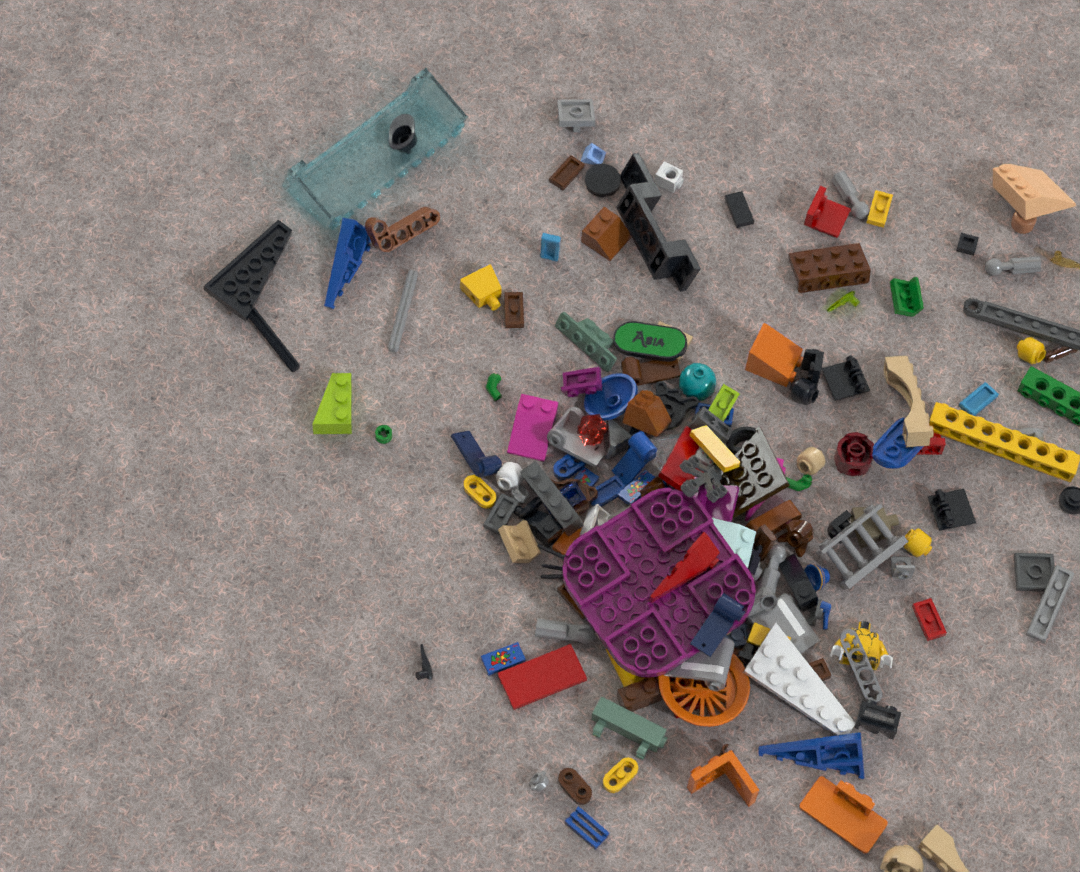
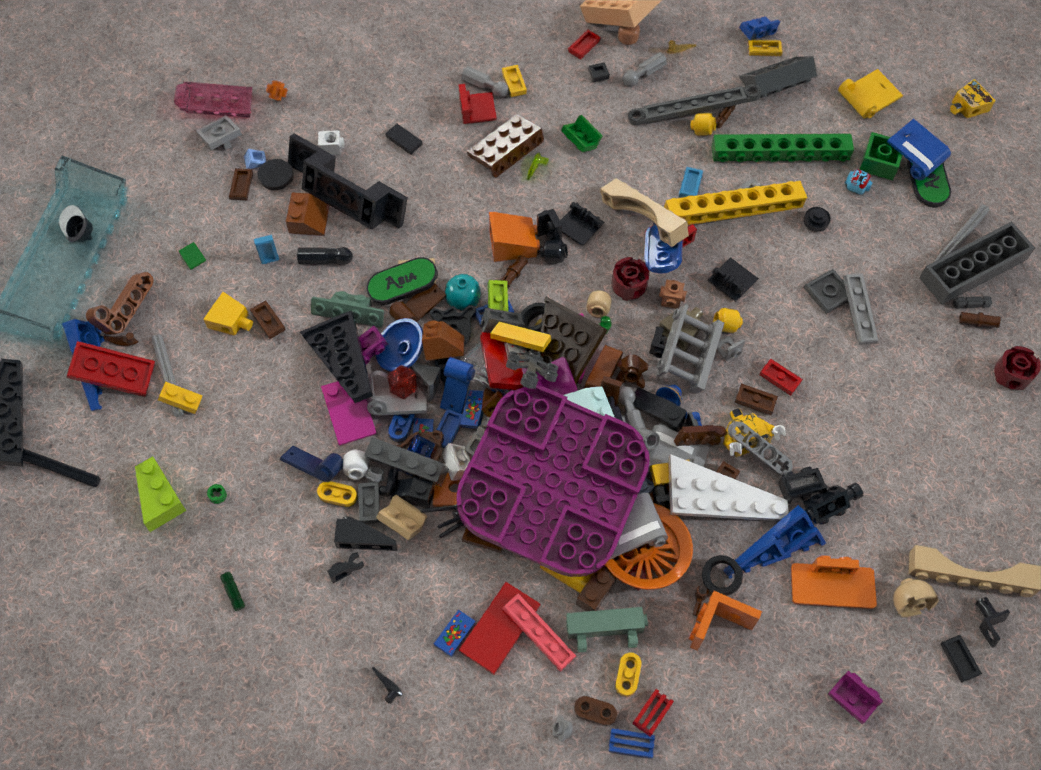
camera: 30 degrees left, 0 degrees up
(349, 519) = (232, 591): none -> dark green axle
(360, 280) = (110, 369): none -> red tile
(383, 258) = (127, 340): none -> reddish brown bar
(401, 336) = (180, 397): none -> yellow plate
(446, 555) = (341, 570): none -> black plate
(474, 534) = (357, 535): none -> black slope
(484, 216) = (192, 256): none -> green slope
(491, 386) = (288, 394): green arm -> none
(556, 372) = (340, 350): none -> black wing
(564, 631) = (492, 574): light grey piece -> none
(570, 698) = (539, 632): none -> coral tile
(571, 59) = (188, 91): none -> clear pink hinge
(597, 279) = (318, 255): none -> black piece
(635, 810) = (662, 699): none -> red tile
(652, 100) = (276, 90): none -> orange gear
(695, 562) = (576, 441): red wedge -> none
(718, 624) = (631, 486): dark blue door -> none
(745, 734) = (725, 560): none -> black tyre
(755, 388) = (514, 270): none -> reddish brown pin
(816, 623) = (700, 435): none -> reddish brown hinge
(883, 490) = (672, 294): none -> nougat brick
(886, 748) = (831, 502): none -> black brick
(892, 625) = (756, 399): none -> reddish brown plate
(974, 208) = (584, 44): none -> red tile

